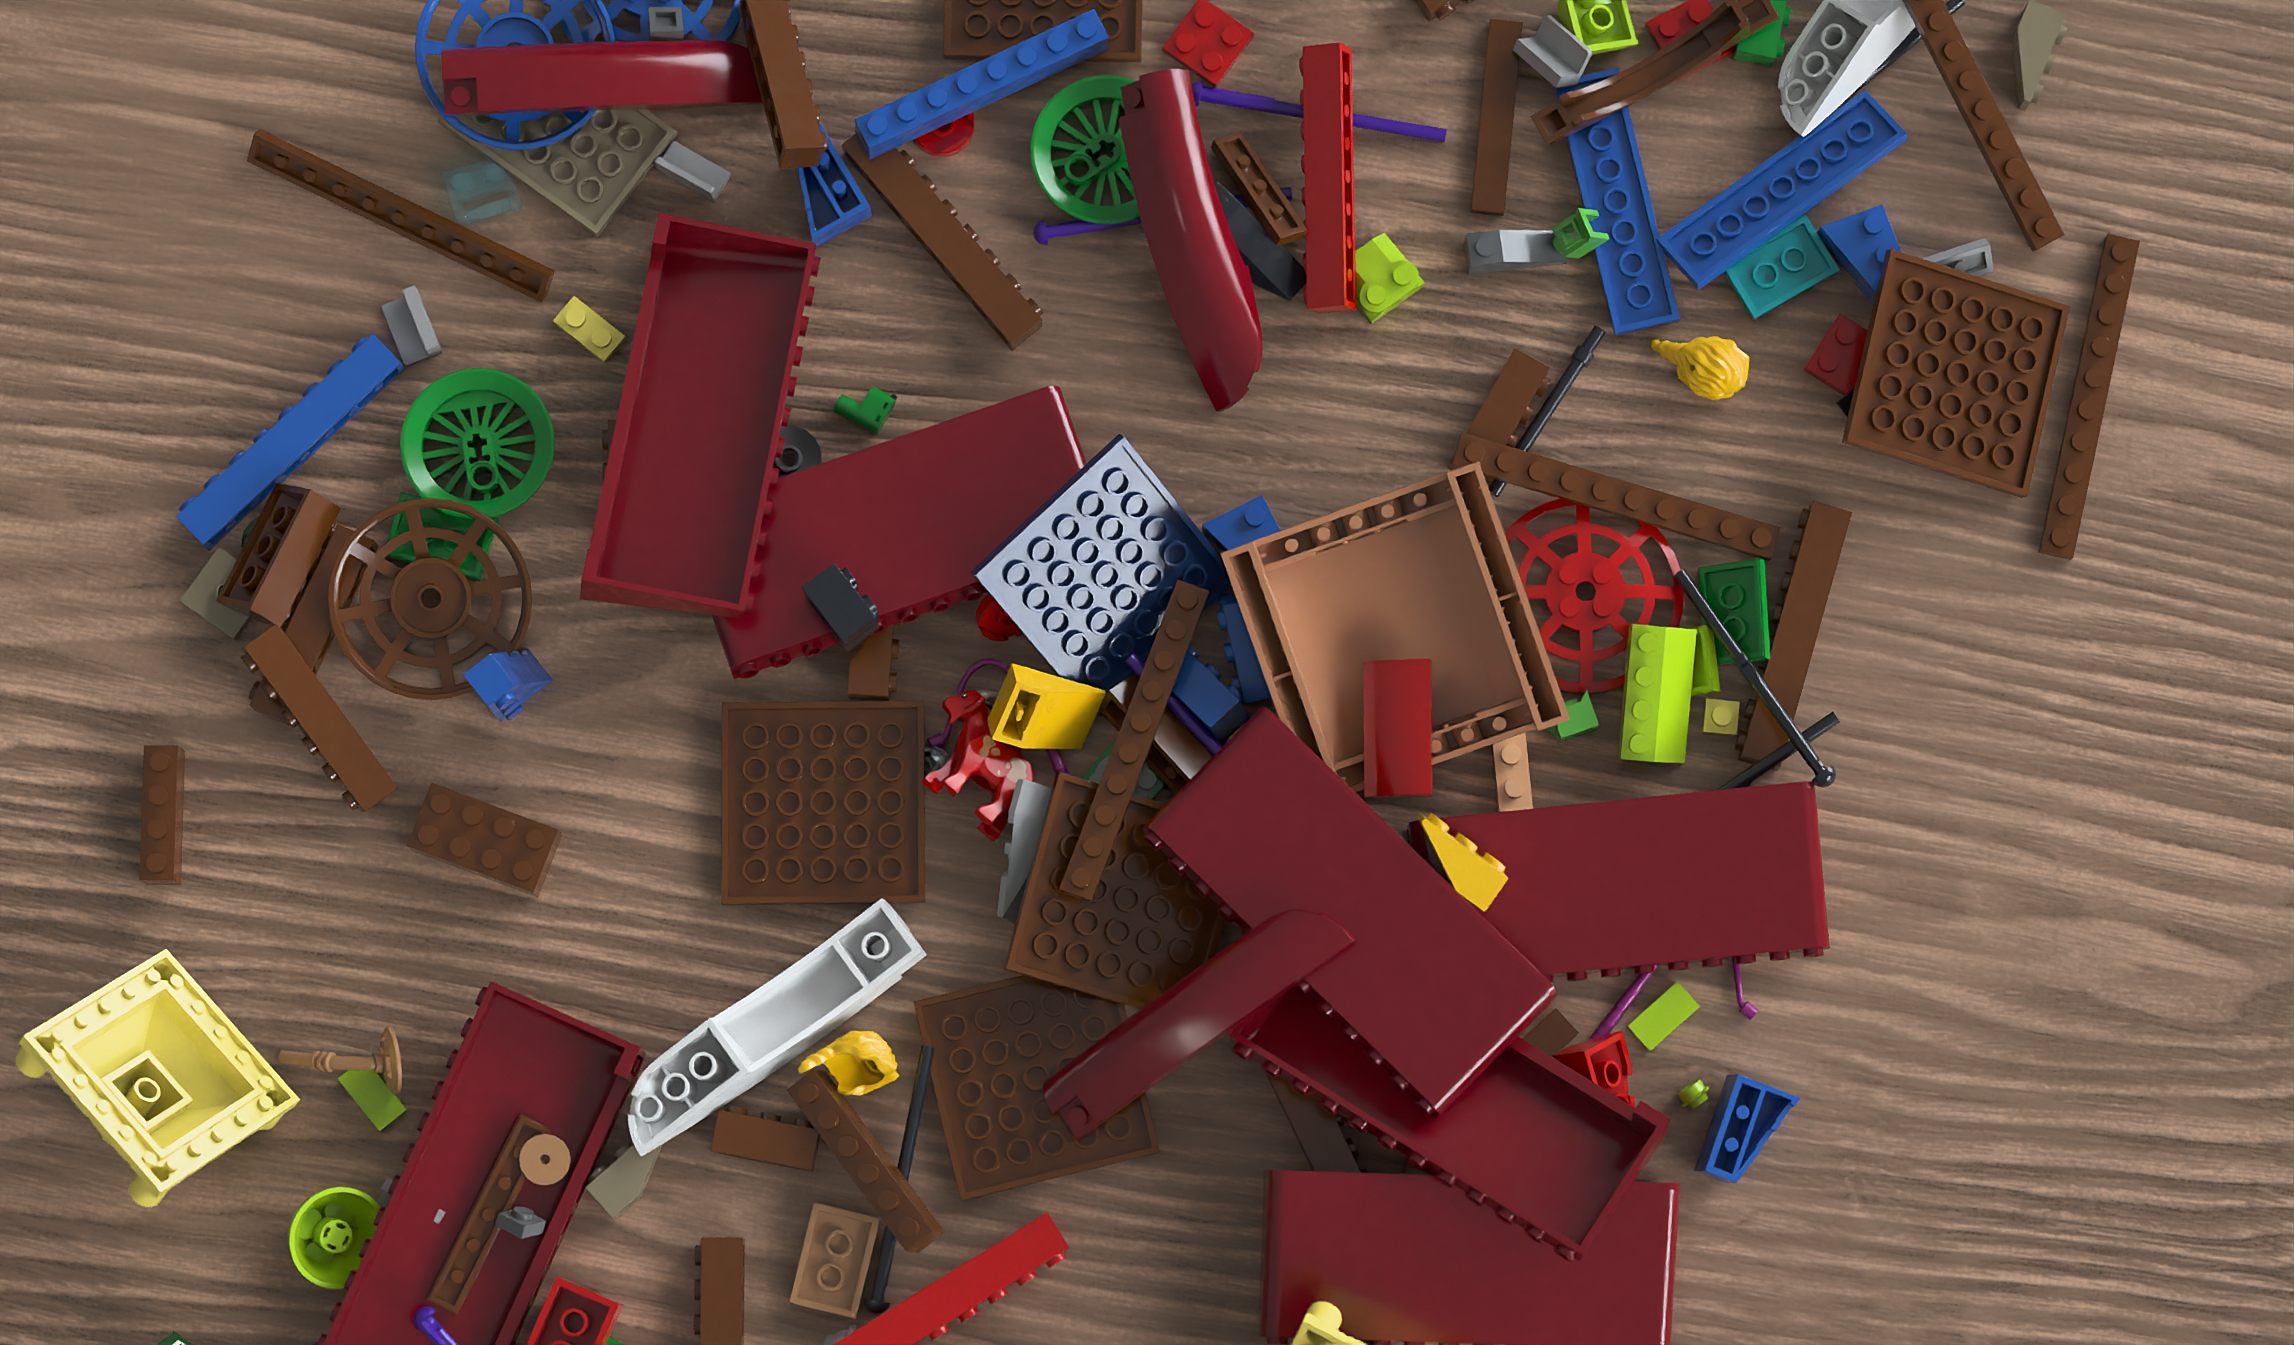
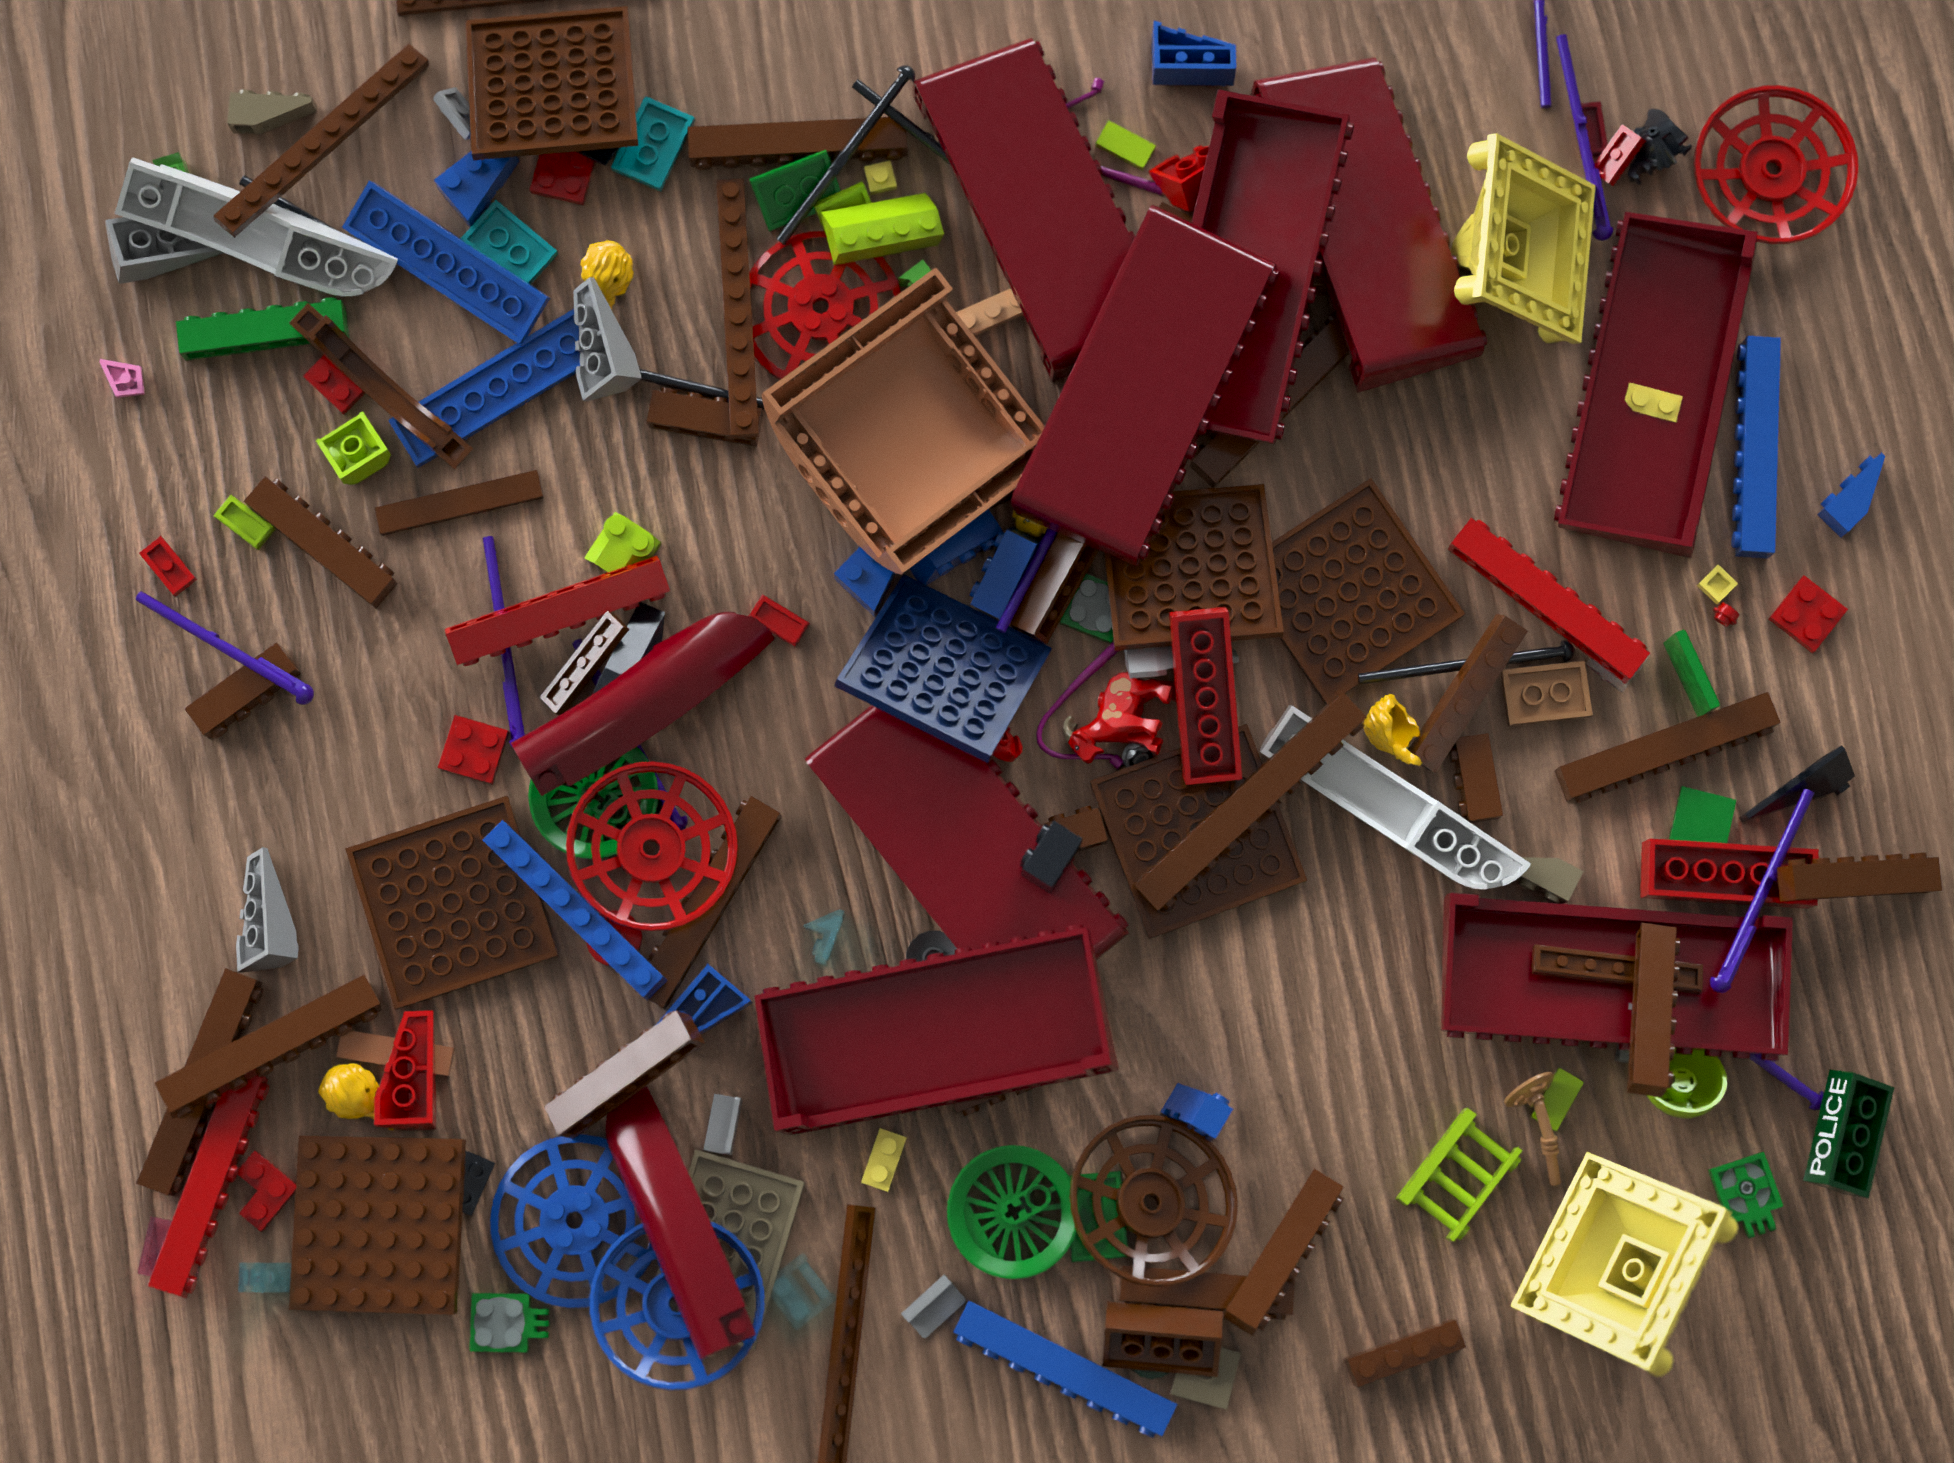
camera: 110 degrees left, 0 degrees up
(188, 1268) = (1748, 1192): none -> green piece
(346, 920) = (1431, 1171): none -> lime fence
(423, 1224) = (1652, 1010): none -> reddish brown brick
(484, 840) = (1327, 1085): reddish brown brick -> none
(520, 1222) = (1616, 940): dark grey plate -> none
(544, 1159) = (1560, 939): medium nougat piece -> none
(665, 23) = (610, 1188): dark grey plate -> none
(829, 864) = (1249, 801): none -> reddish brown brick
(863, 356) = (828, 927): none -> clear light blue slope
(871, 413) = (873, 907): green piece -> none
(964, 851) = (1205, 695): none -> red brick
(1016, 165) = (661, 831): none -> red dish
(1043, 710) = (1068, 682): yellow slope -> none
(1134, 741) = (1066, 598): reddish brown plate -> none
(1192, 1016) = (1270, 473): dark red slope -> none
(1235, 423) = (780, 620): none -> red tile
(1398, 728) = (984, 402): red slope -> none
(1470, 874) = (1079, 305): yellow slope -> none
(1510, 250) = (565, 452): dark grey slope -> none
(1555, 53) = (393, 470): light grey panel -> none
(1576, 236) = (537, 404): bright green window -> none
(1609, 329) = (605, 354): none -> light grey wedge
(1693, 1094) = (1176, 103): lime plate -> none
(1847, 474) = (660, 141): none -> teal plate

